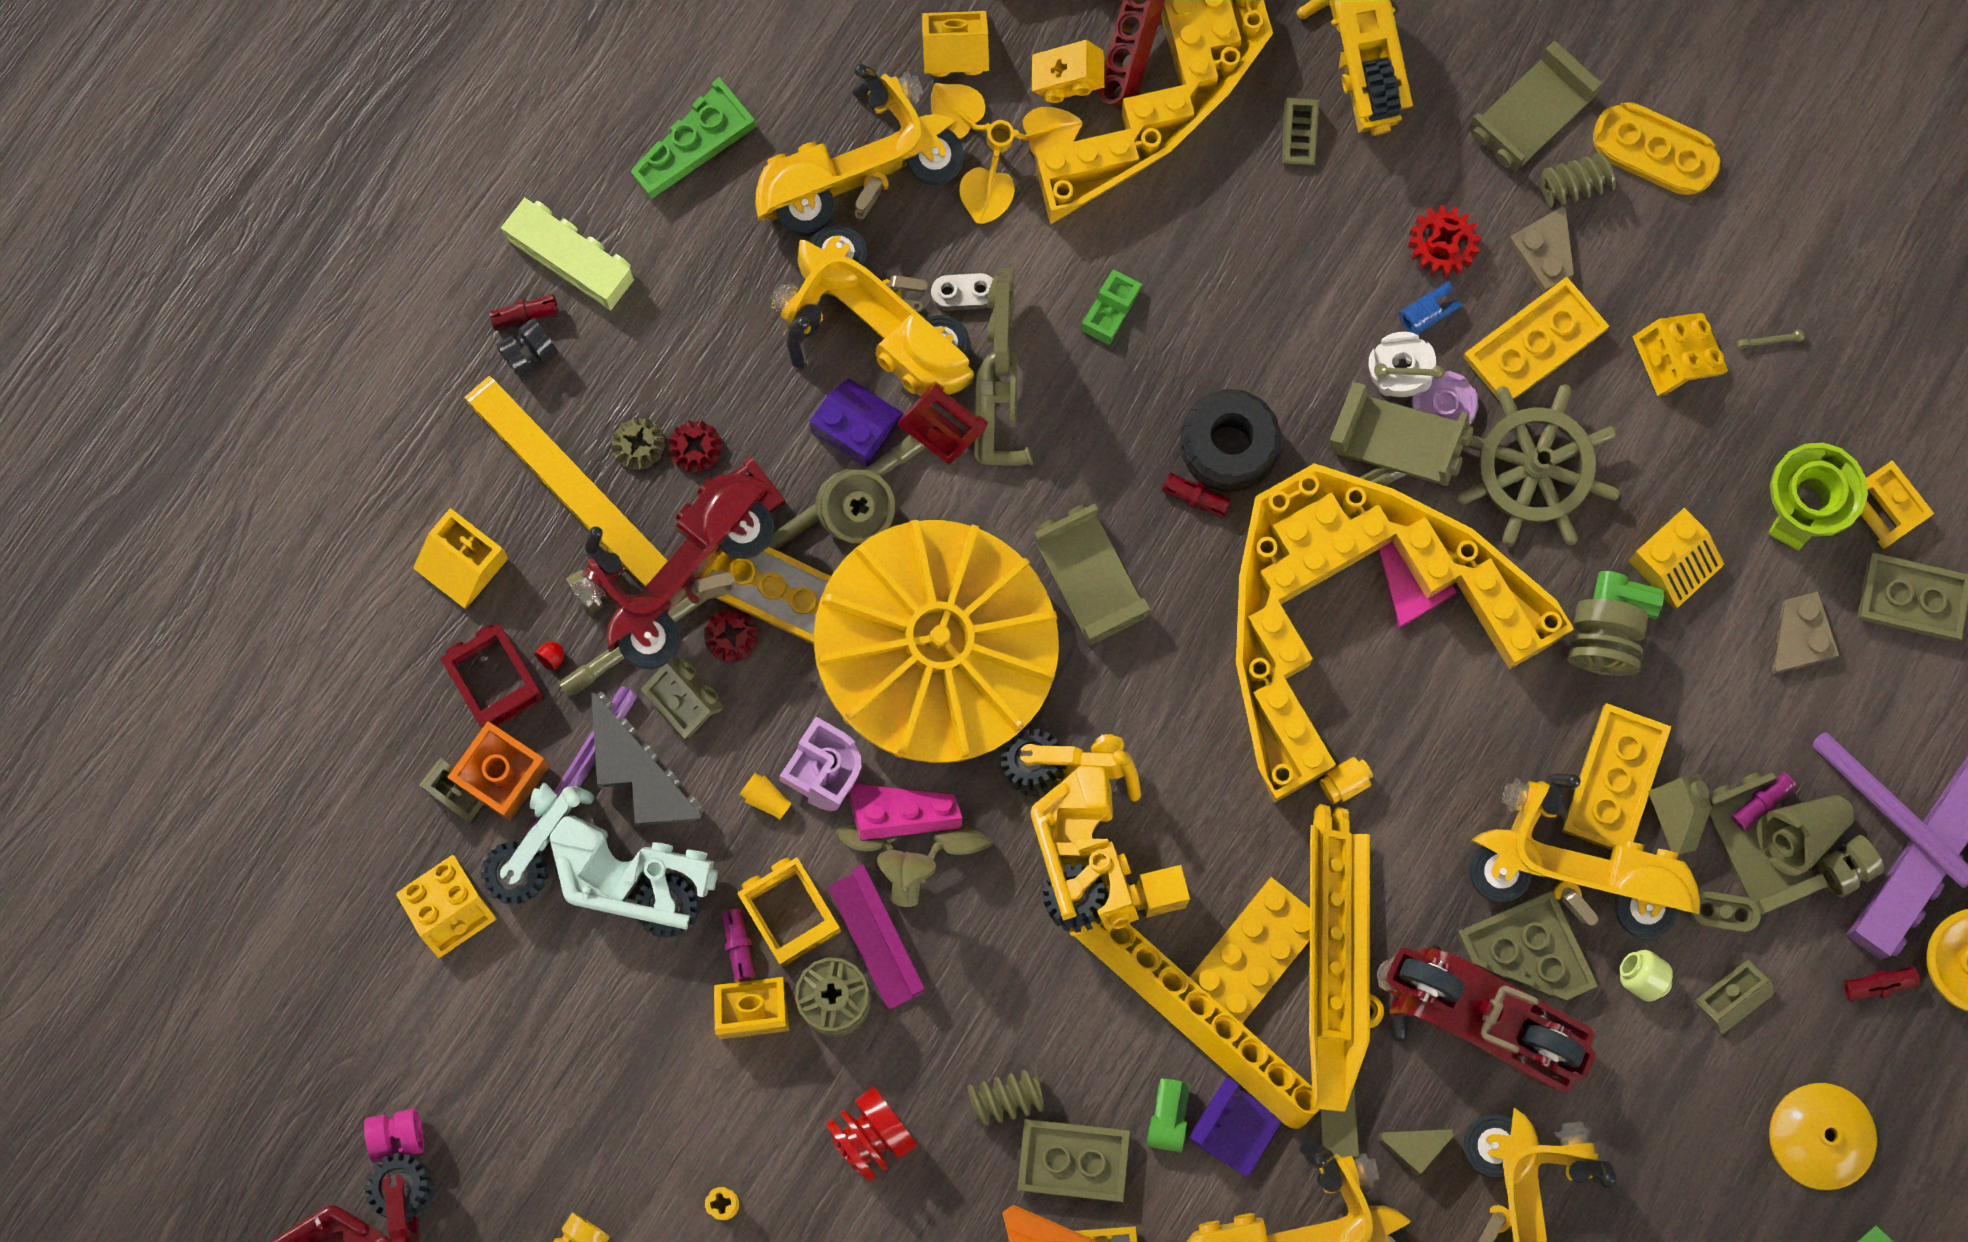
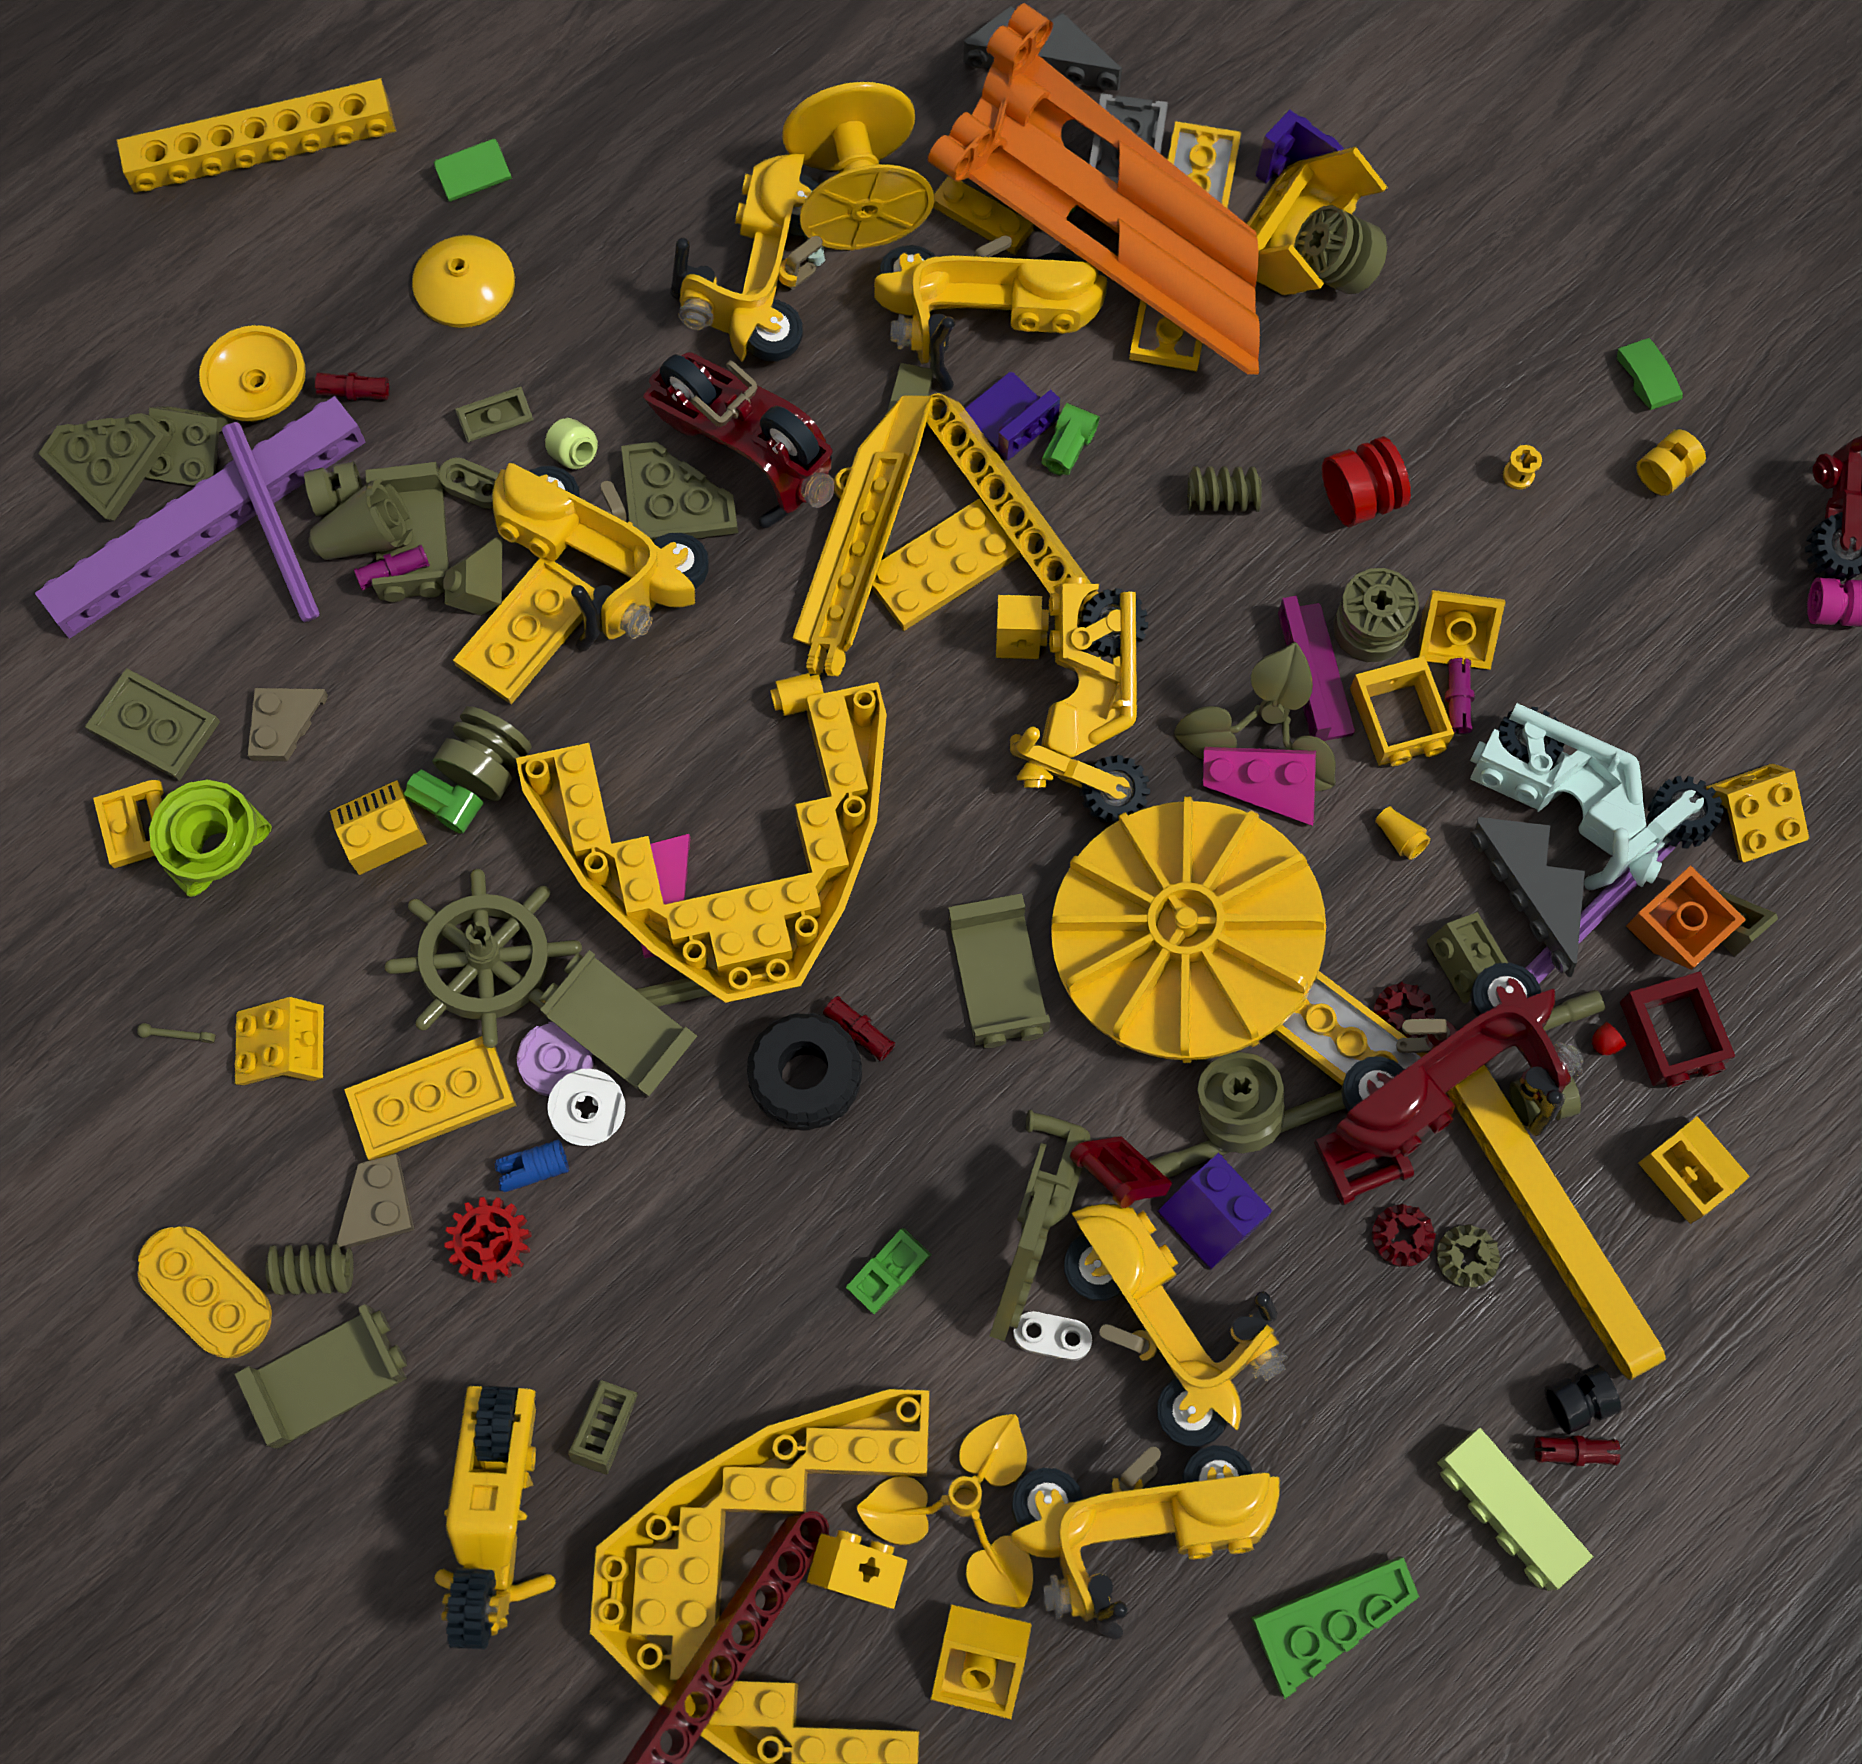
camera: 165 degrees left, 5 degrees down
(823, 766) = (1336, 838): lavender brick -> none
(1073, 1160) = (1172, 423): olive plate -> none
(1381, 371) = (613, 1102): olive hinge -> none
(1415, 1148) = (843, 356): olive slope -> none

